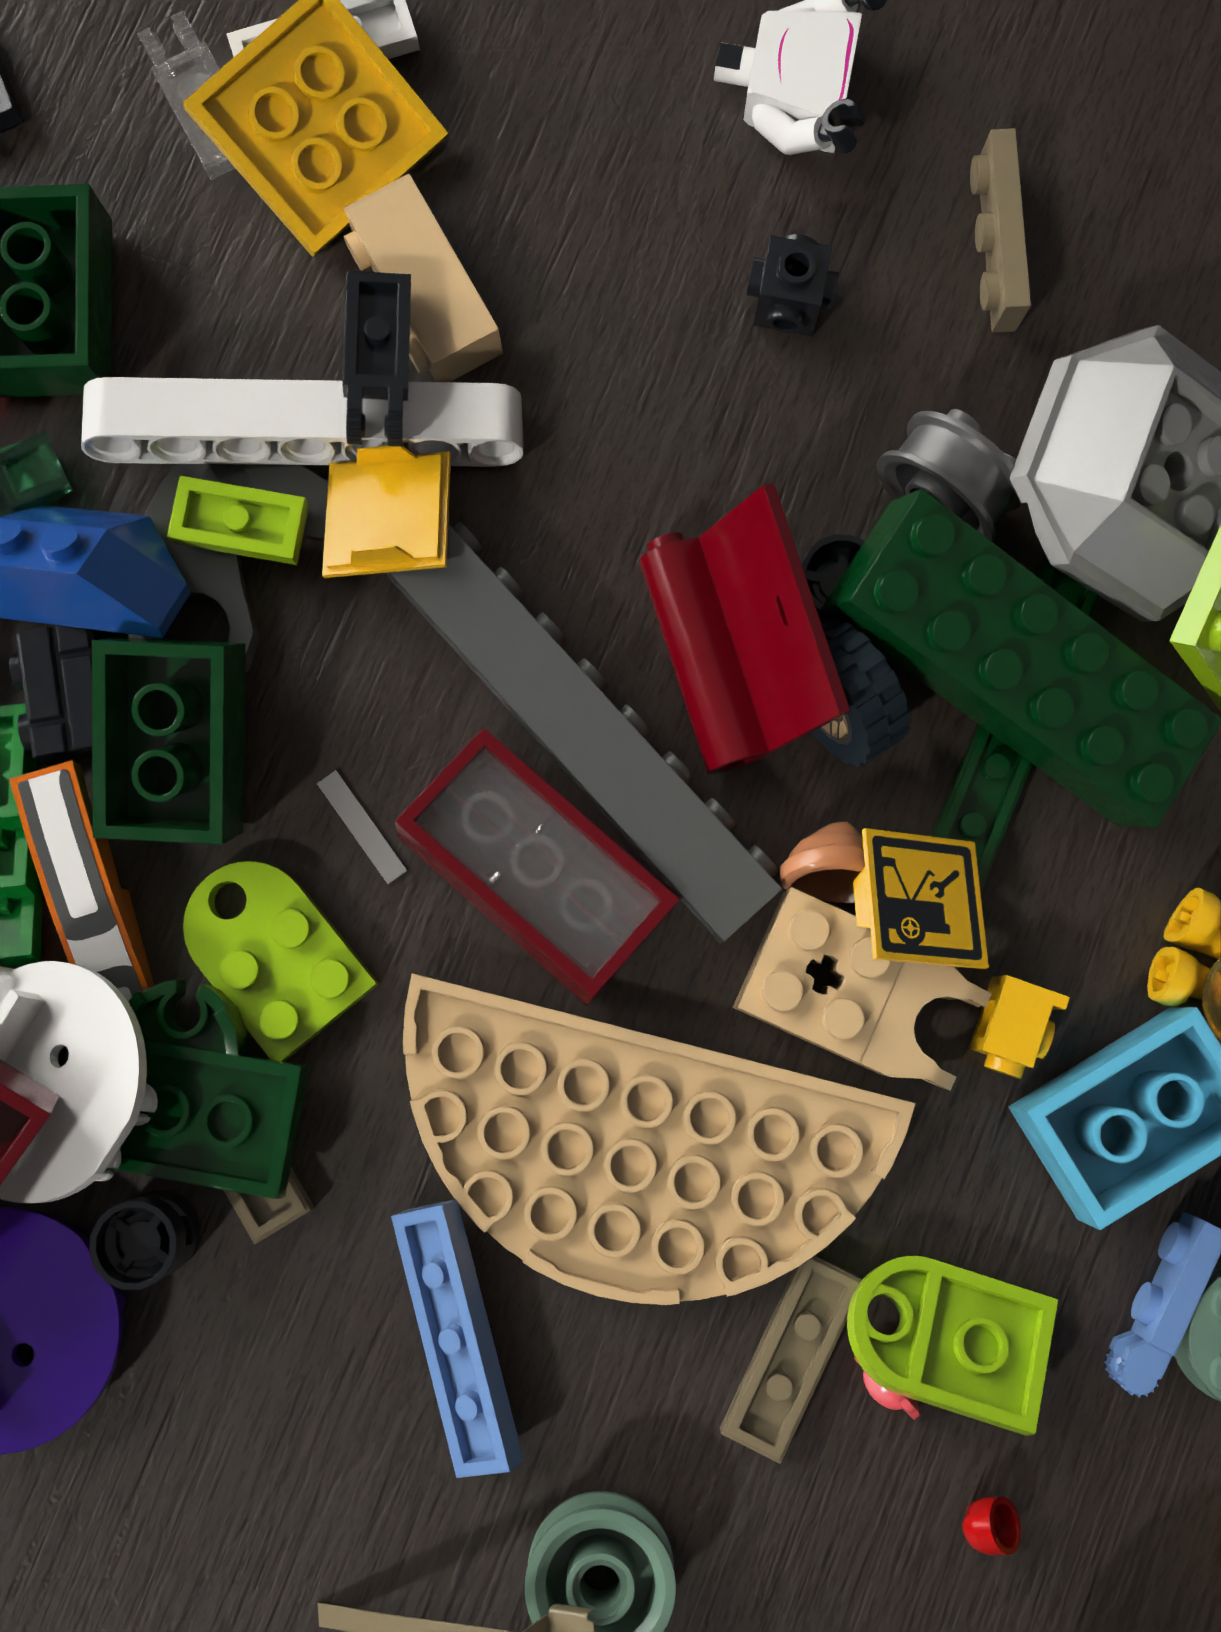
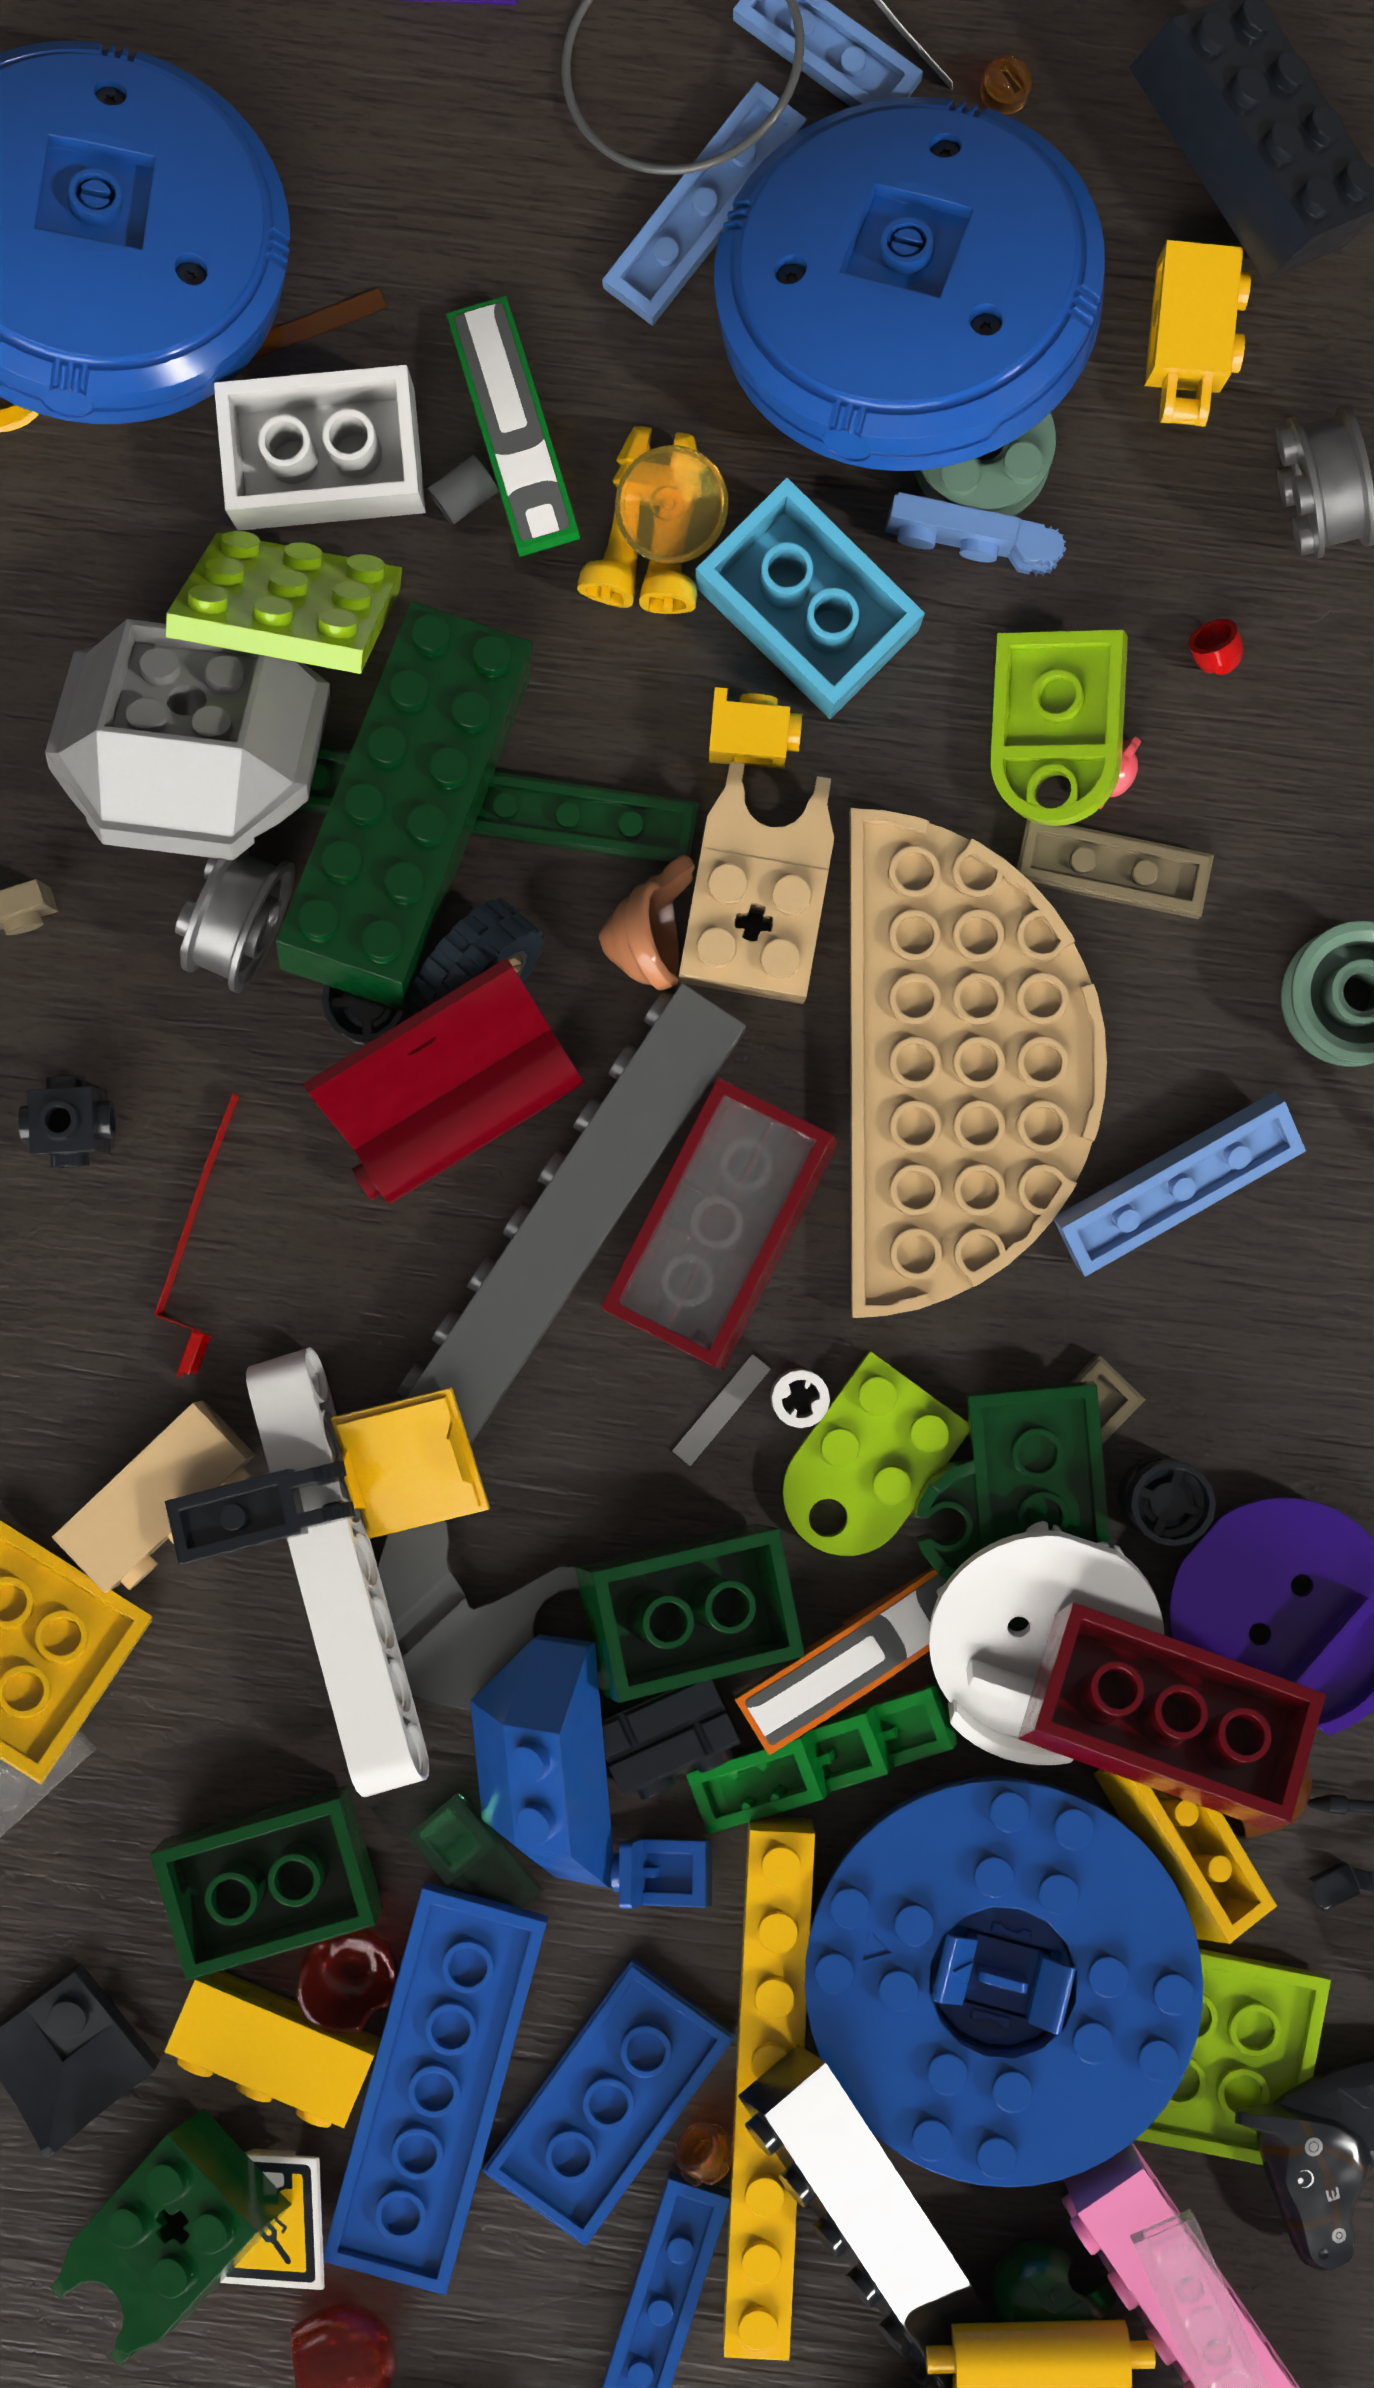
camera: 105 degrees left, 5 degrees up
(238, 520) = (453, 1608): lime plate -> none
(333, 887) = (817, 1405): none -> white gear
(558, 358) = (198, 1341): none -> red piece
(921, 899) = (660, 848): piece -> none

